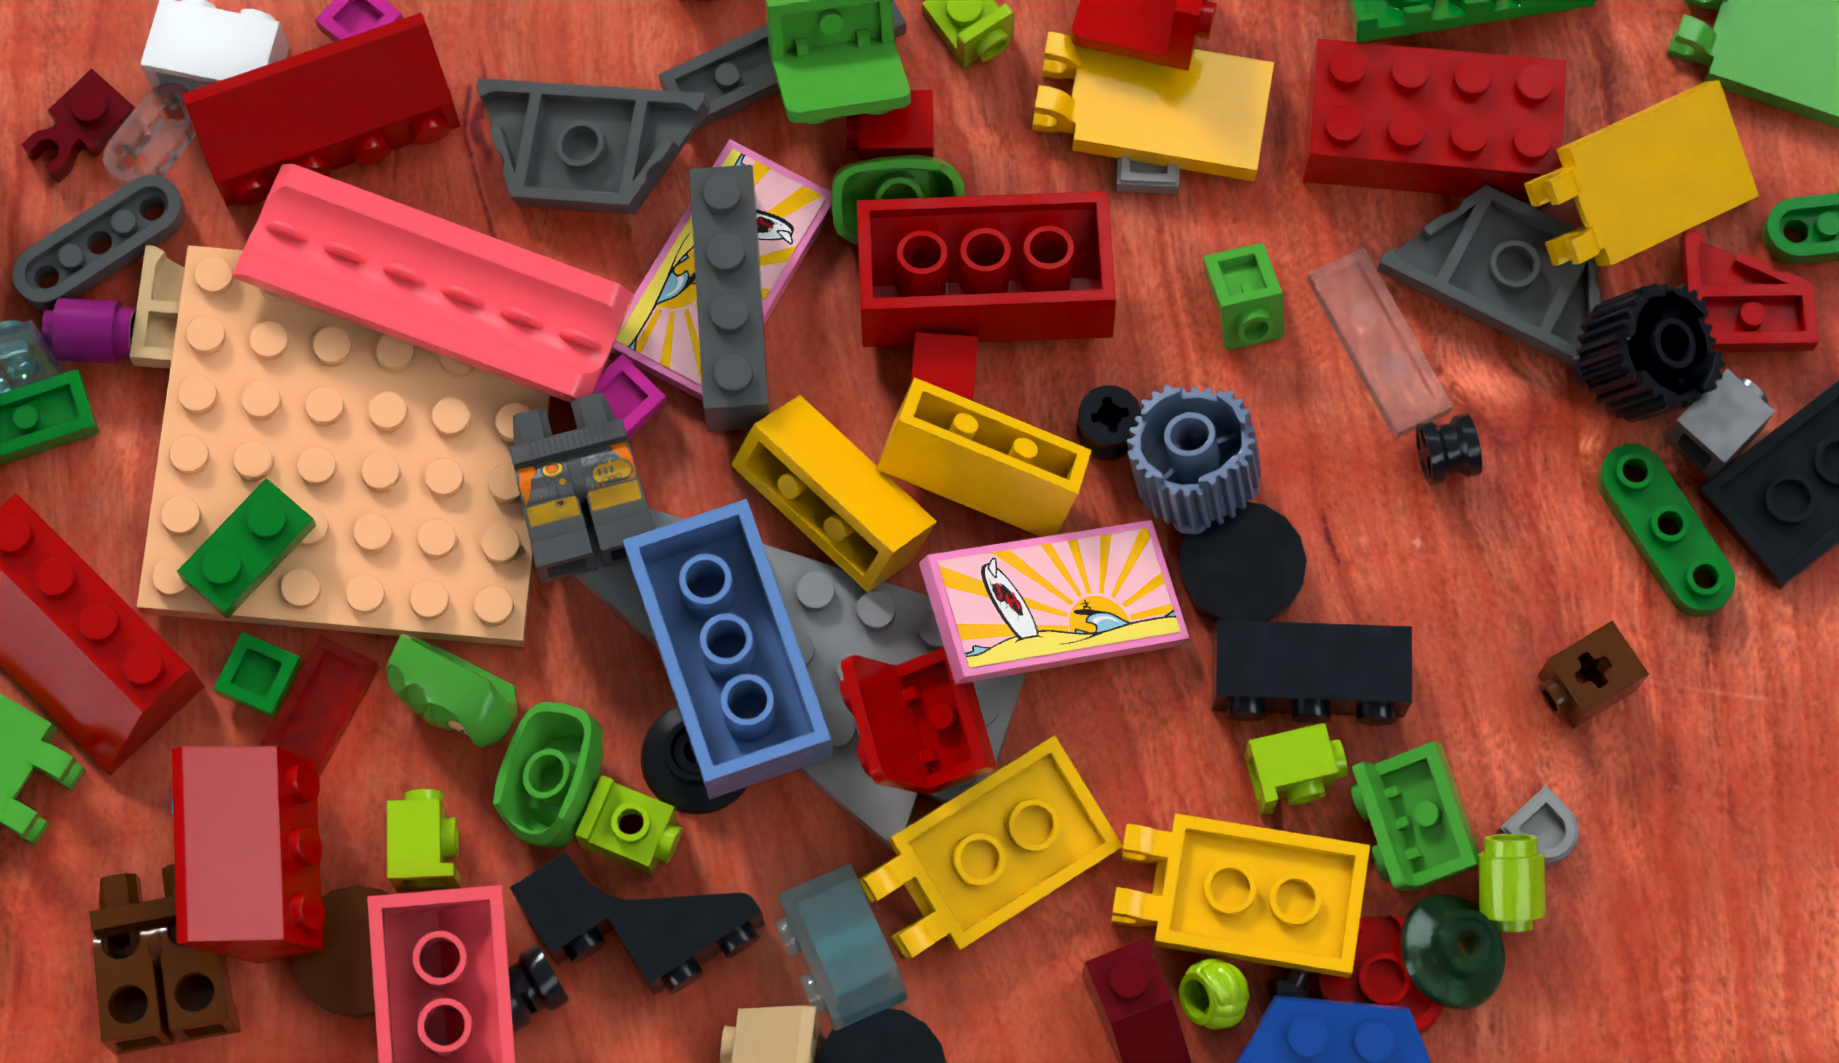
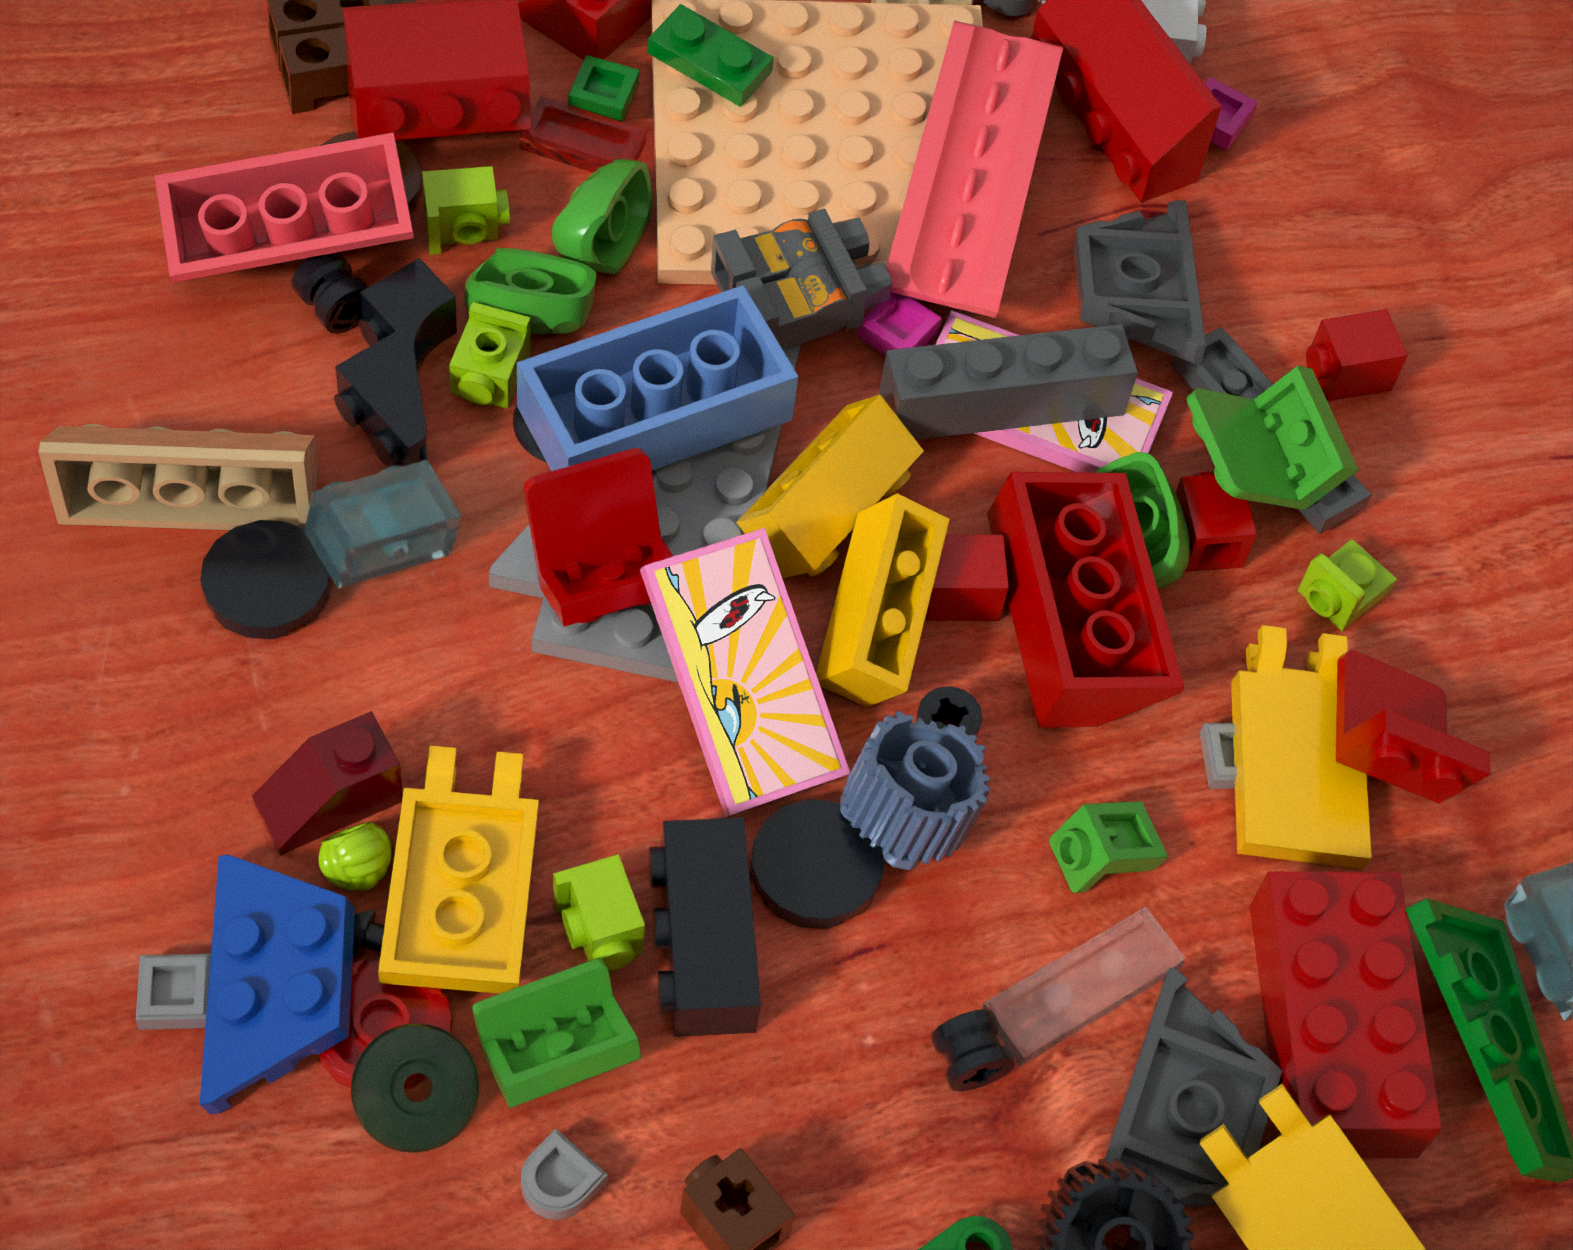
camera: 75 degrees right, 15 degrees down
(994, 849) = (492, 649): yellow tile -> none
(1512, 881) = (491, 1133): lime brick -> none

